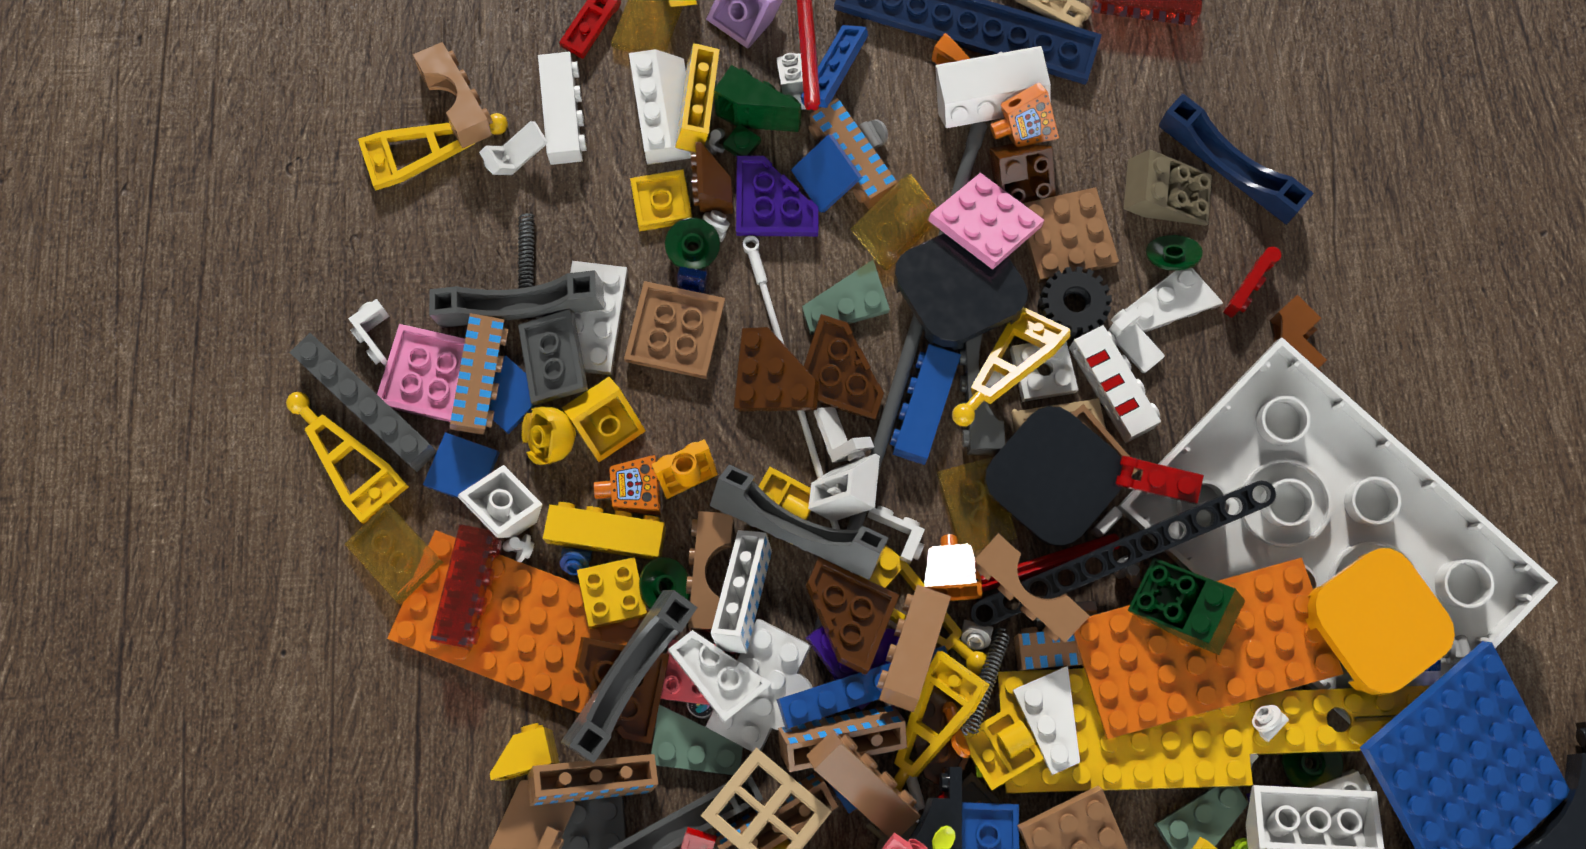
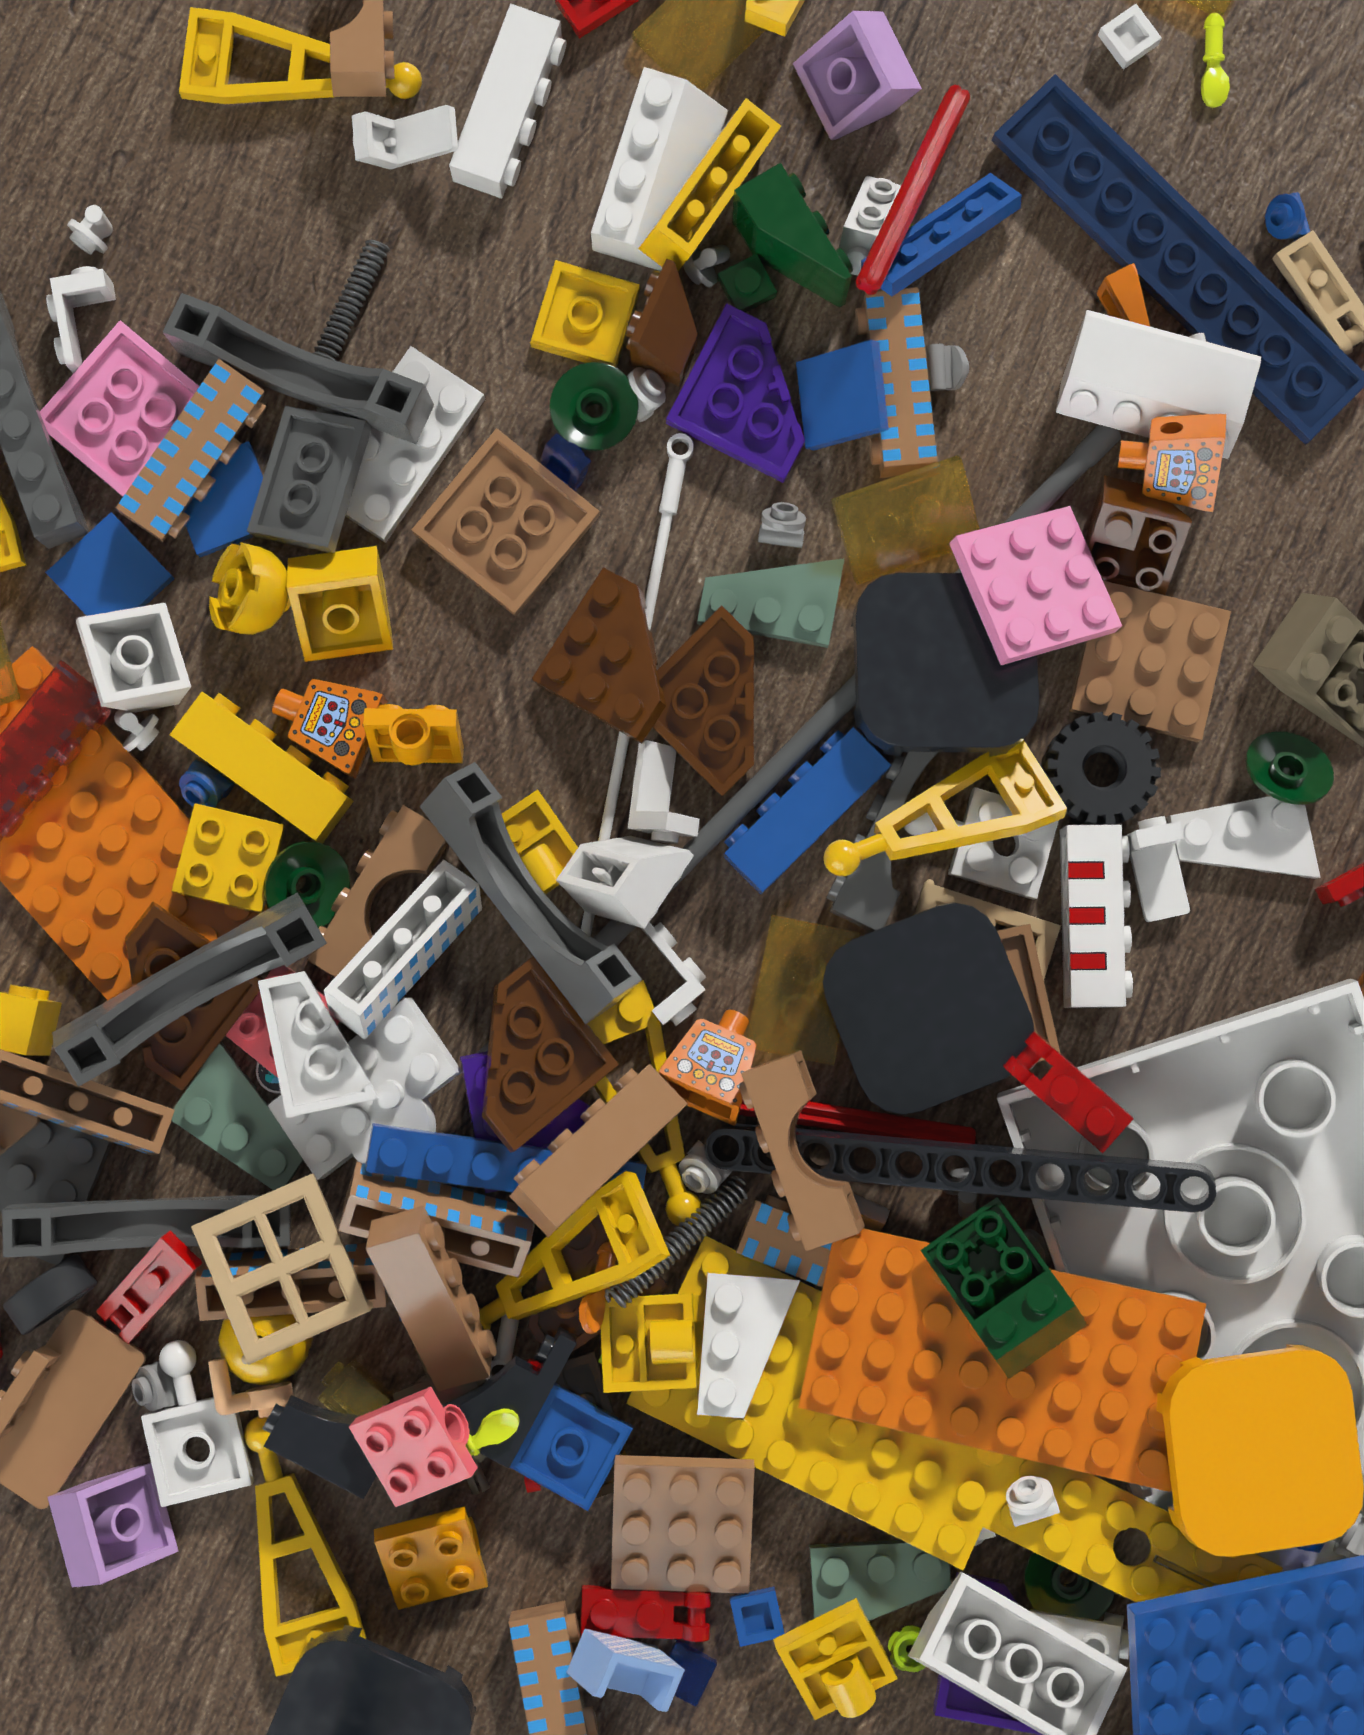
camera: 25 degrees right, 10 degrees up
(358, 285) = (91, 230): none -> white plate
(829, 258) = (782, 525): none -> light grey plate
(1106, 522) = (970, 1108): white tile -> none

